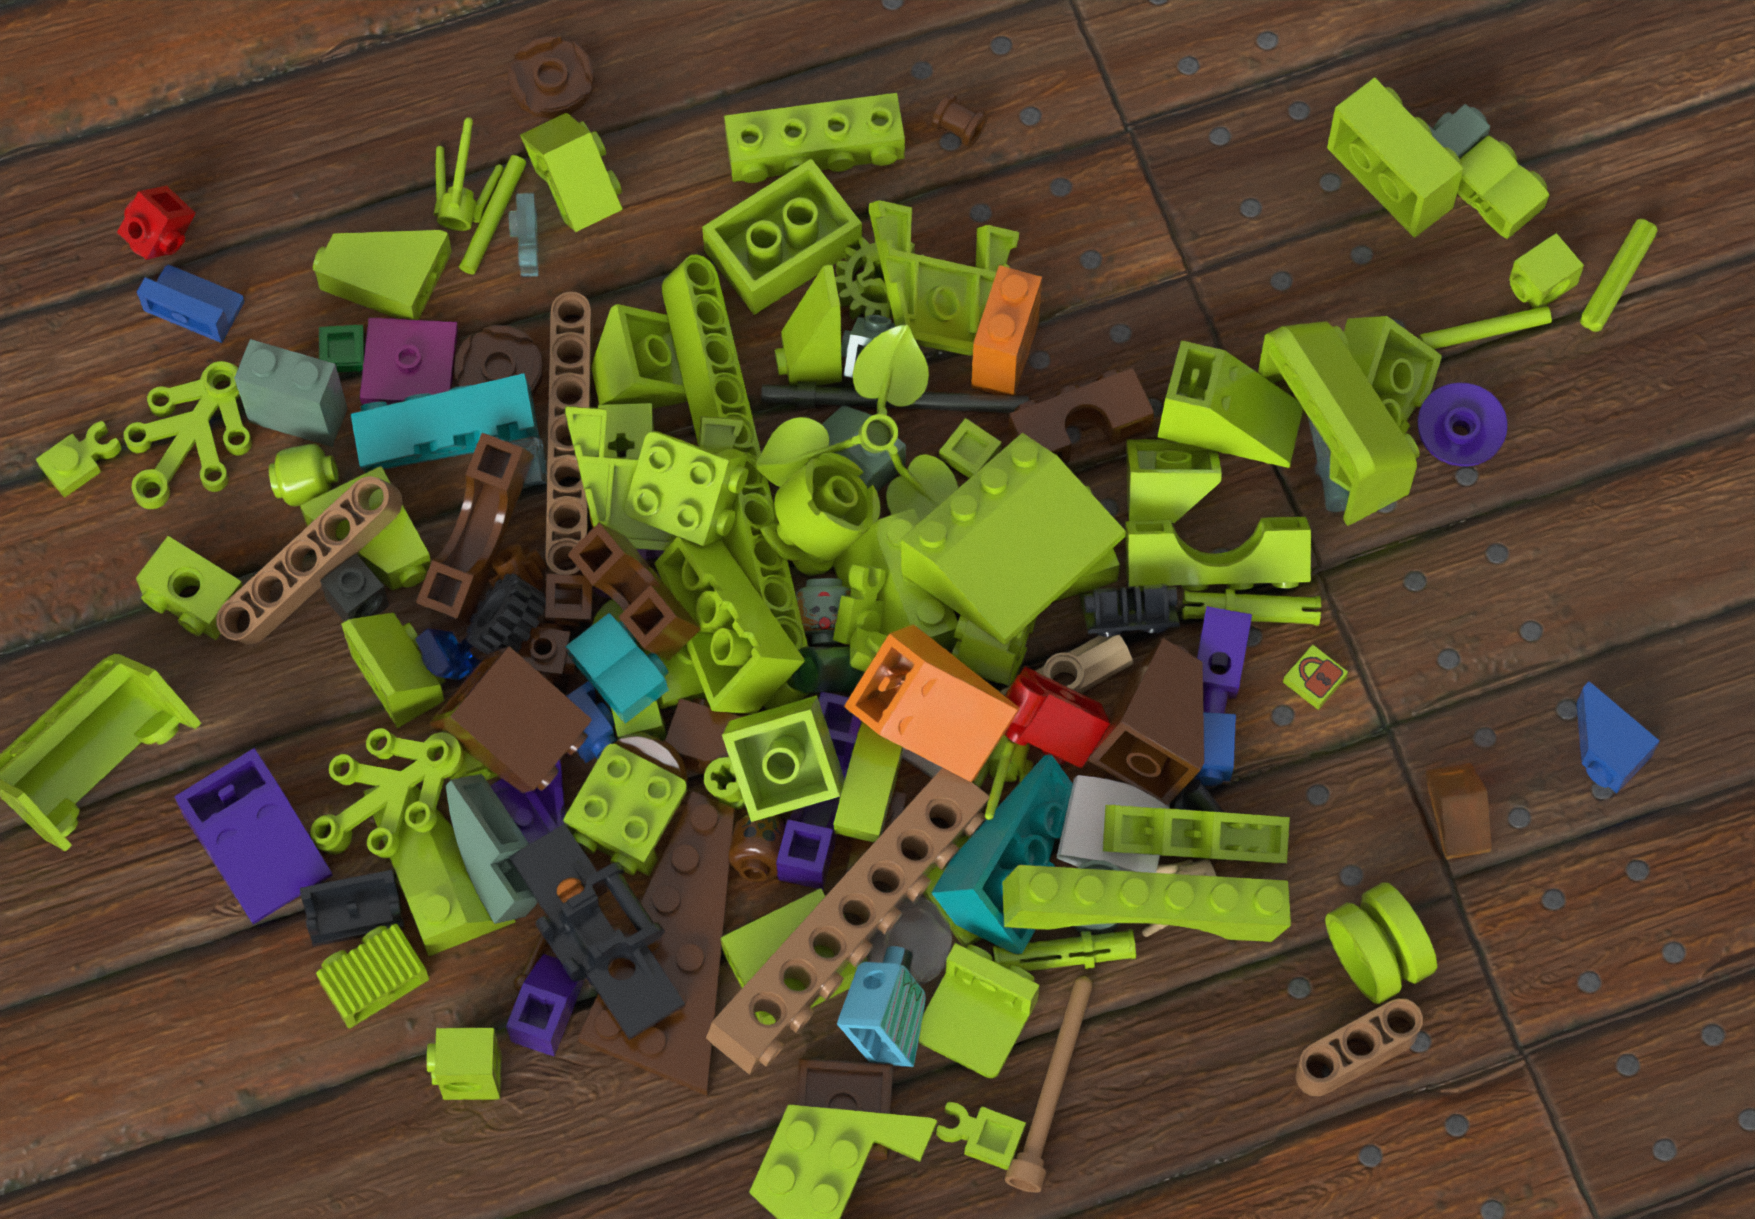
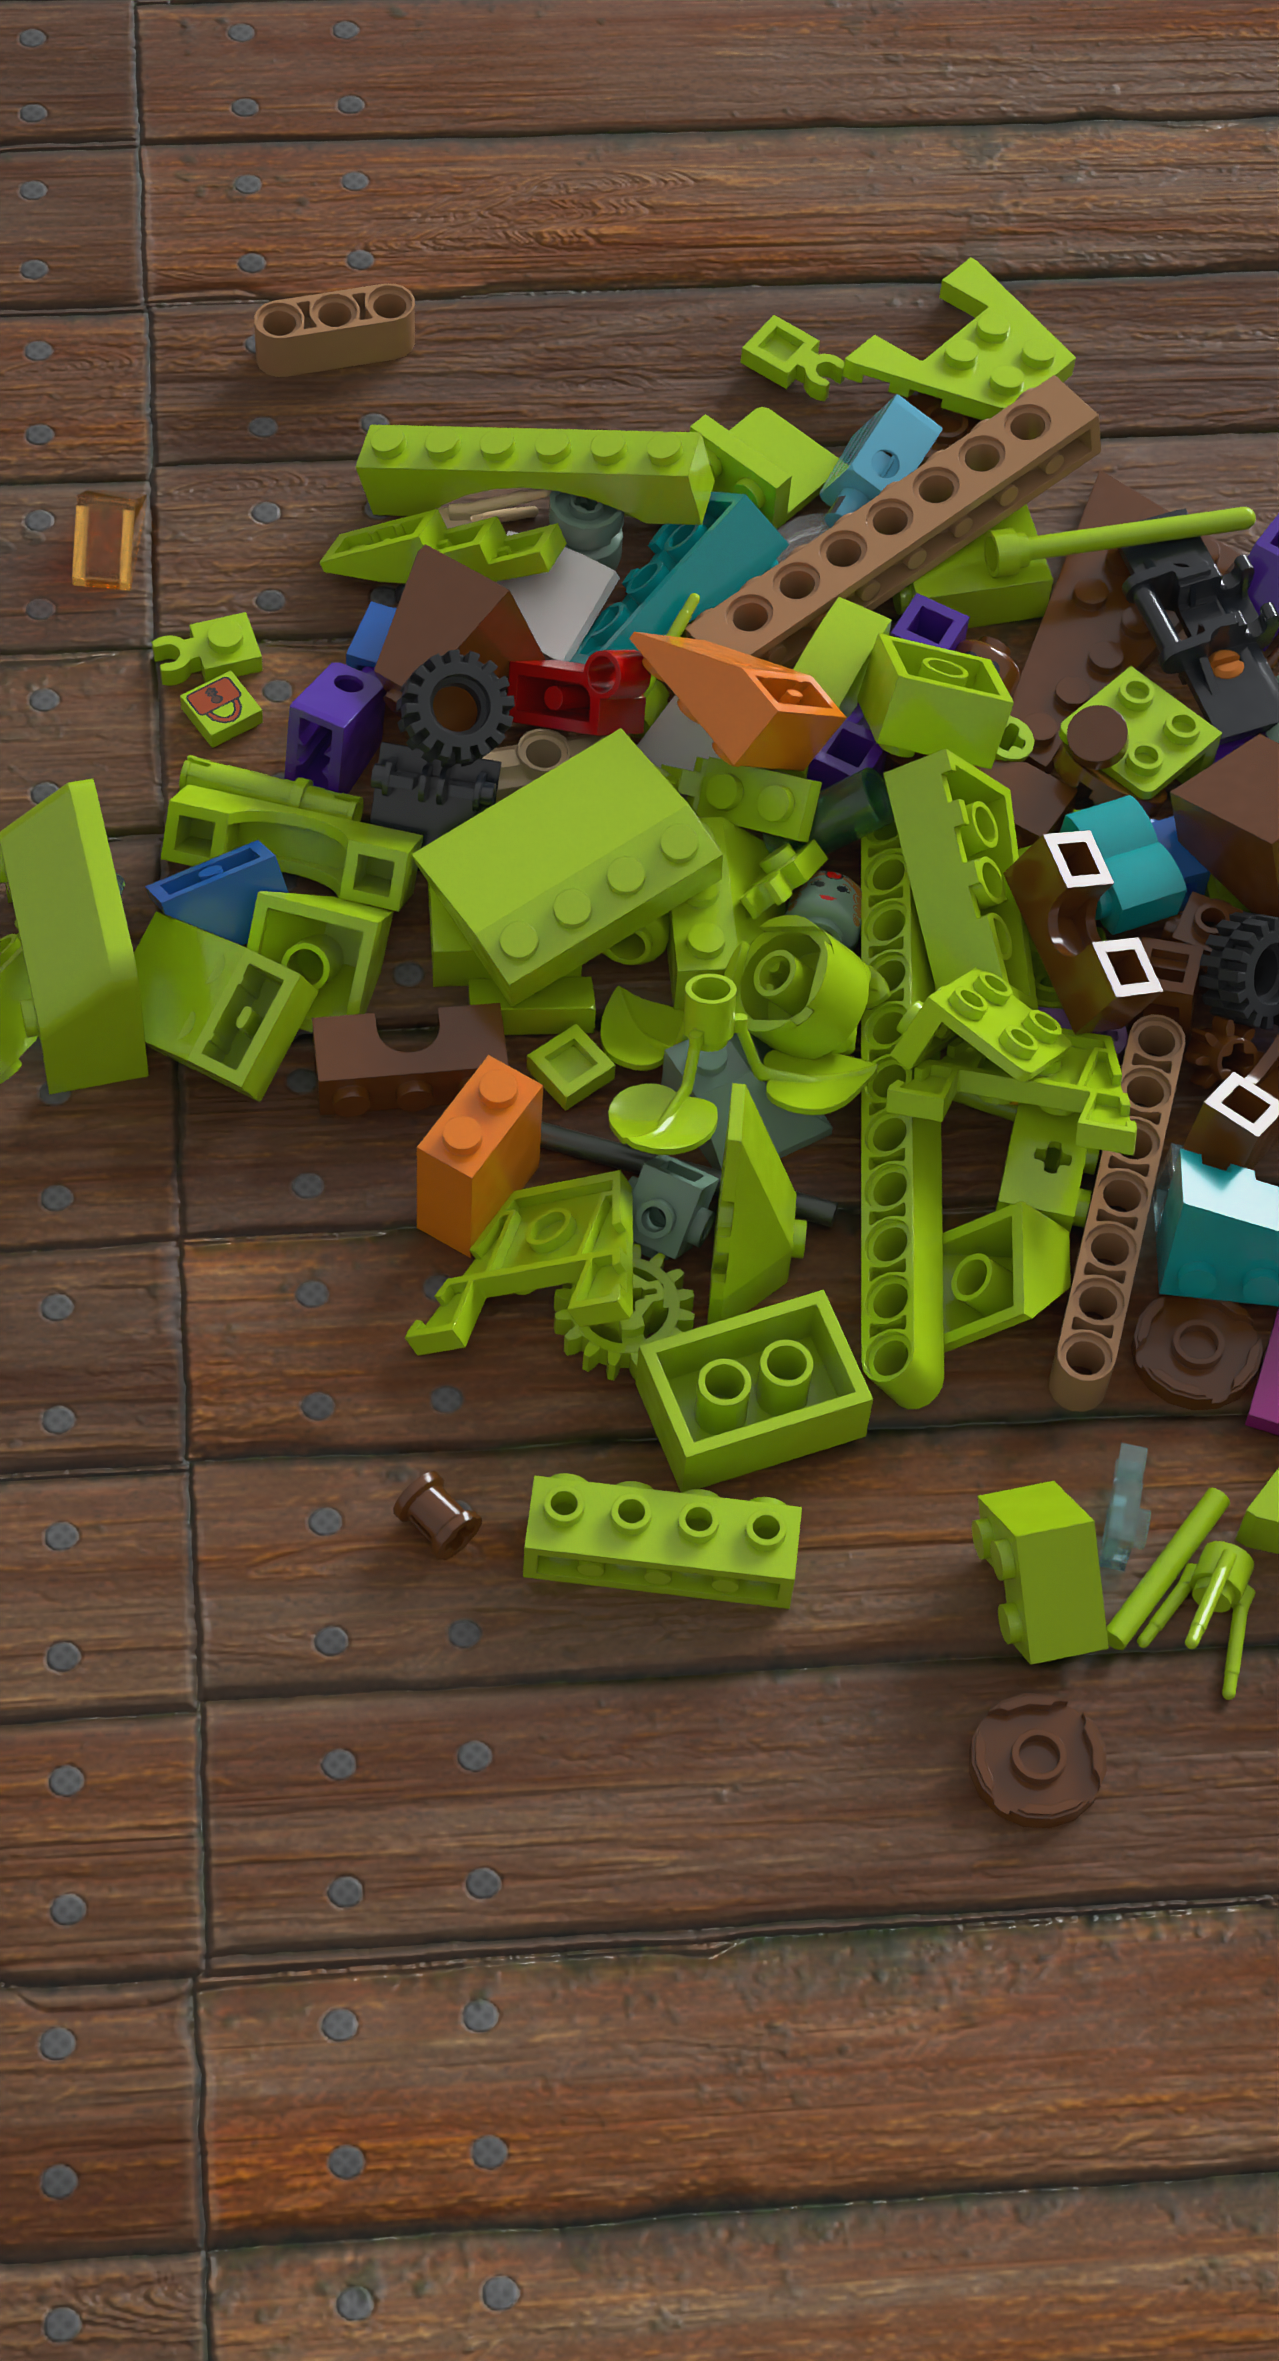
camera: 170 degrees left, 10 degrees down
(655, 763) = (1098, 737): none -> reddish brown tile
(755, 936) = (1010, 551): none -> lime piece
(1027, 1169) = (747, 319): medium nougat piece -> none
(1138, 643) = (480, 683): none -> black tyre
(1250, 494) = (221, 891): none -> blue slope
(1339, 730) = (212, 648): none -> lime plate
(1381, 943) = (271, 387): lime wheel -> none

